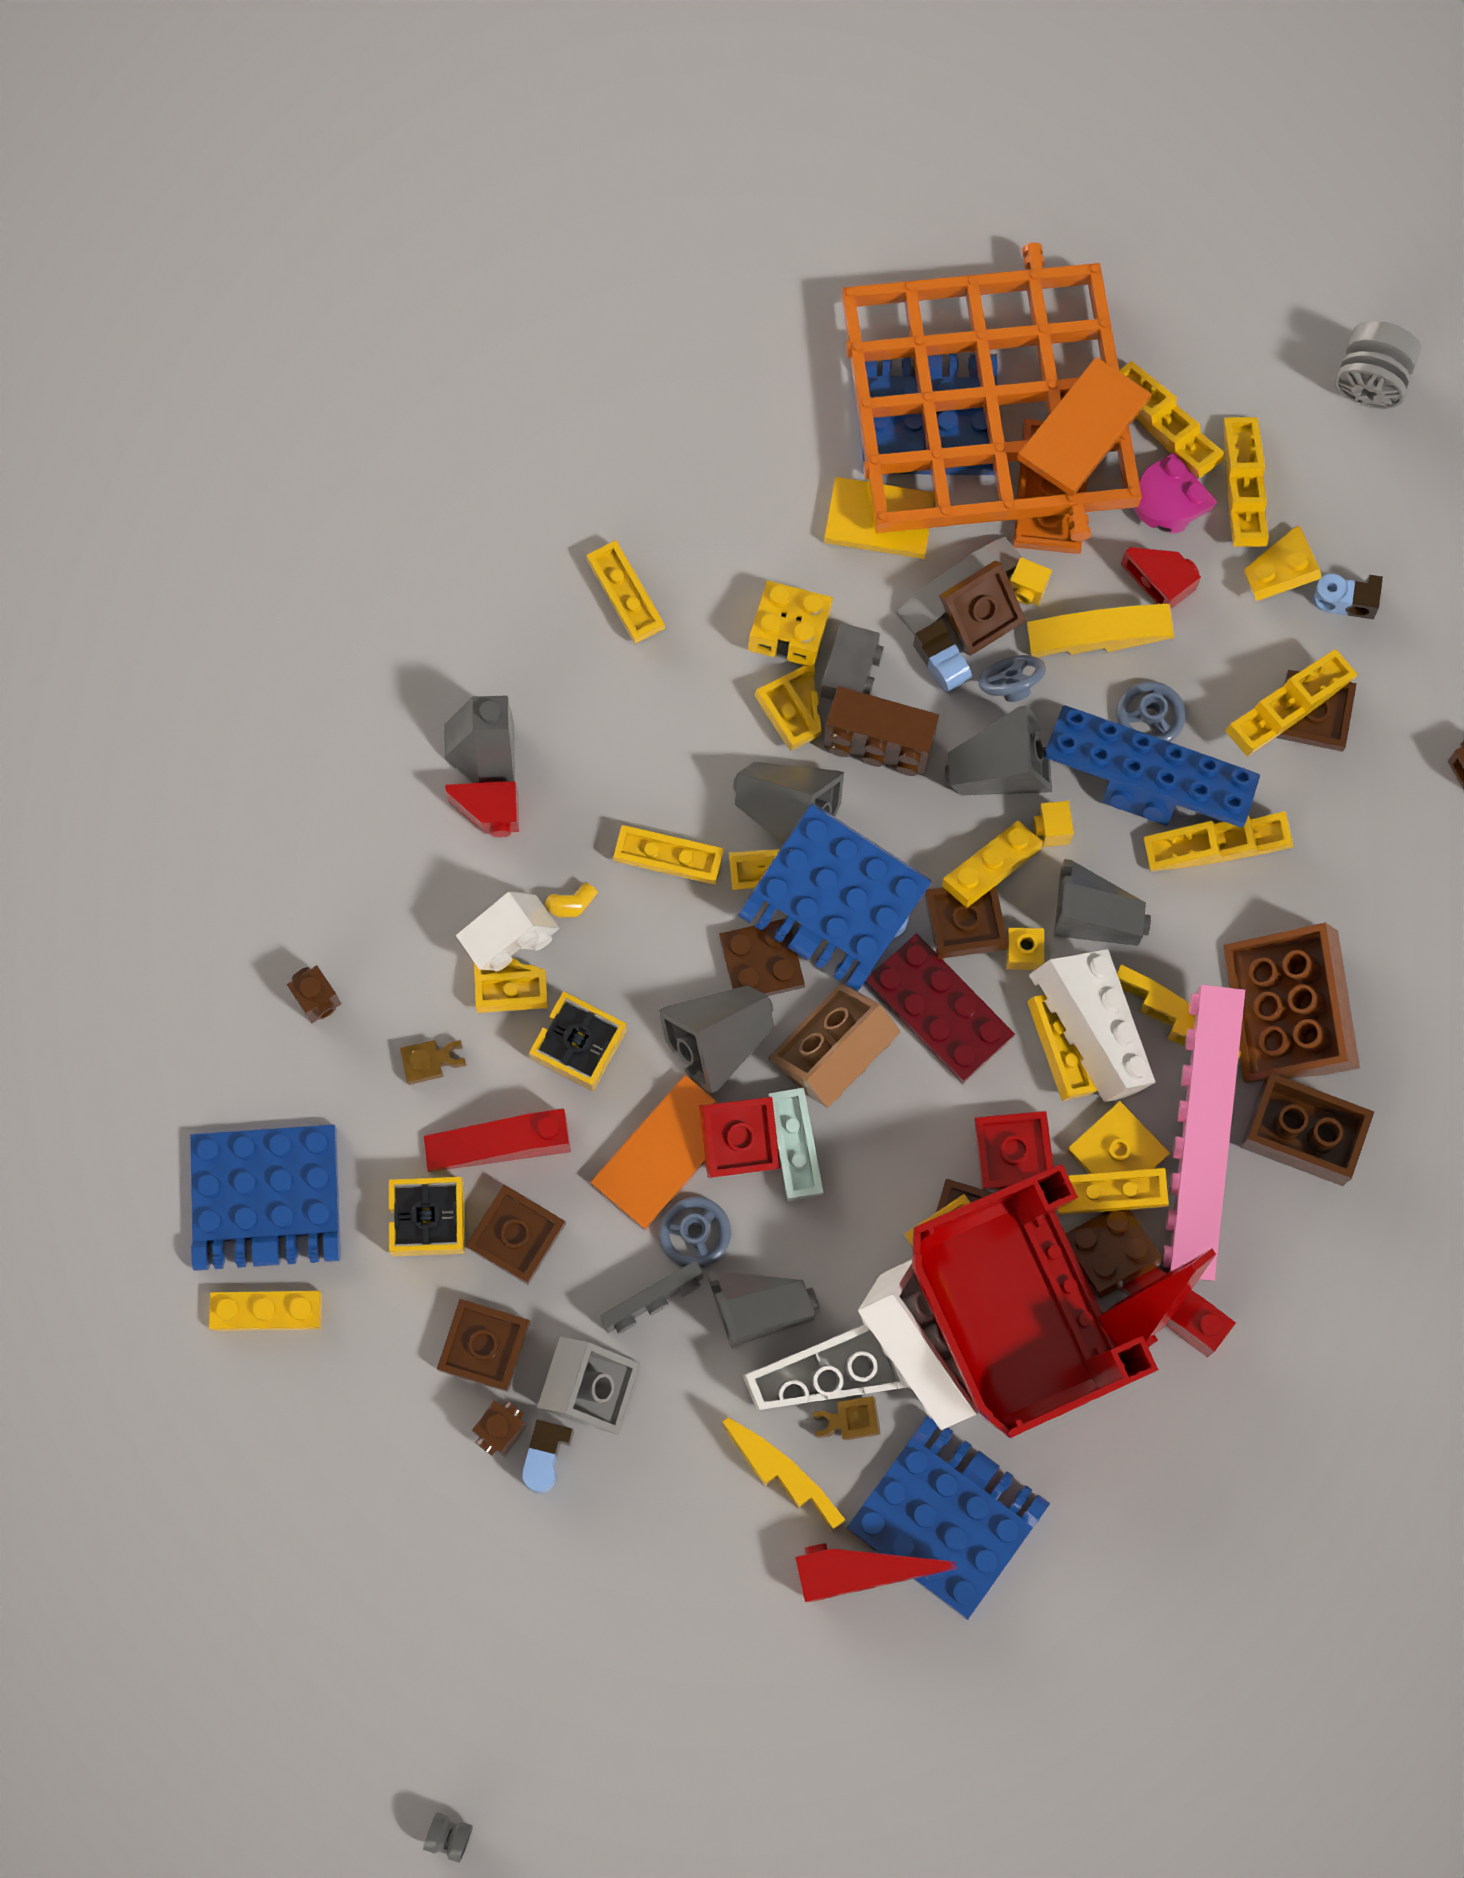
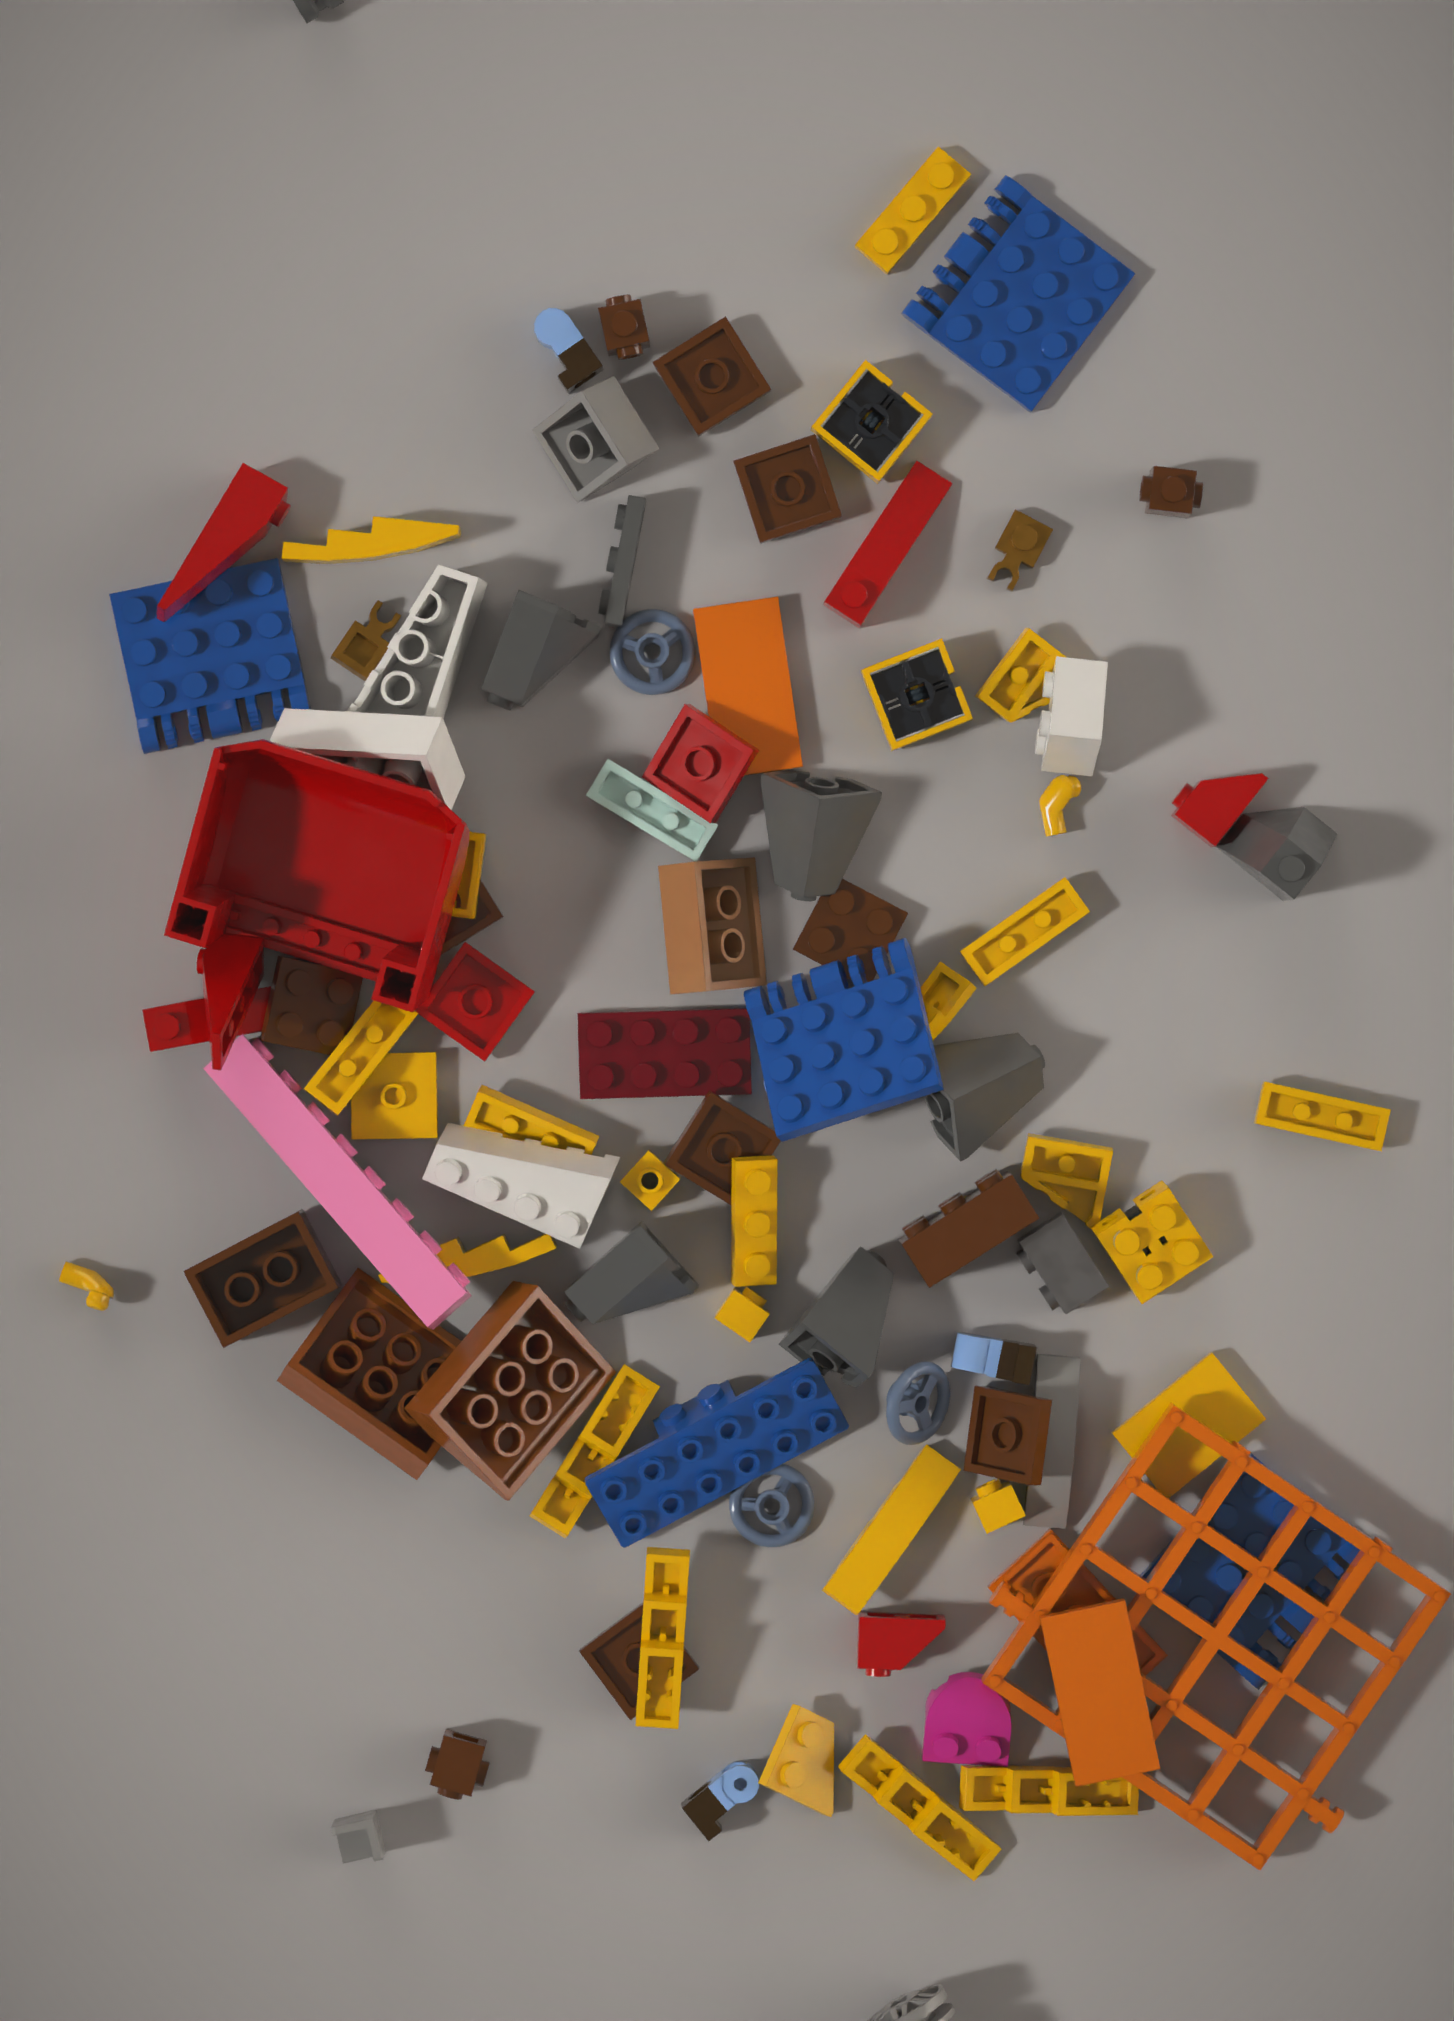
camera: 130 degrees right, 15 degrees up
(1231, 918) = (511, 1388): none -> dark orange slope
(1409, 1240) = (99, 1289): none -> yellow arm

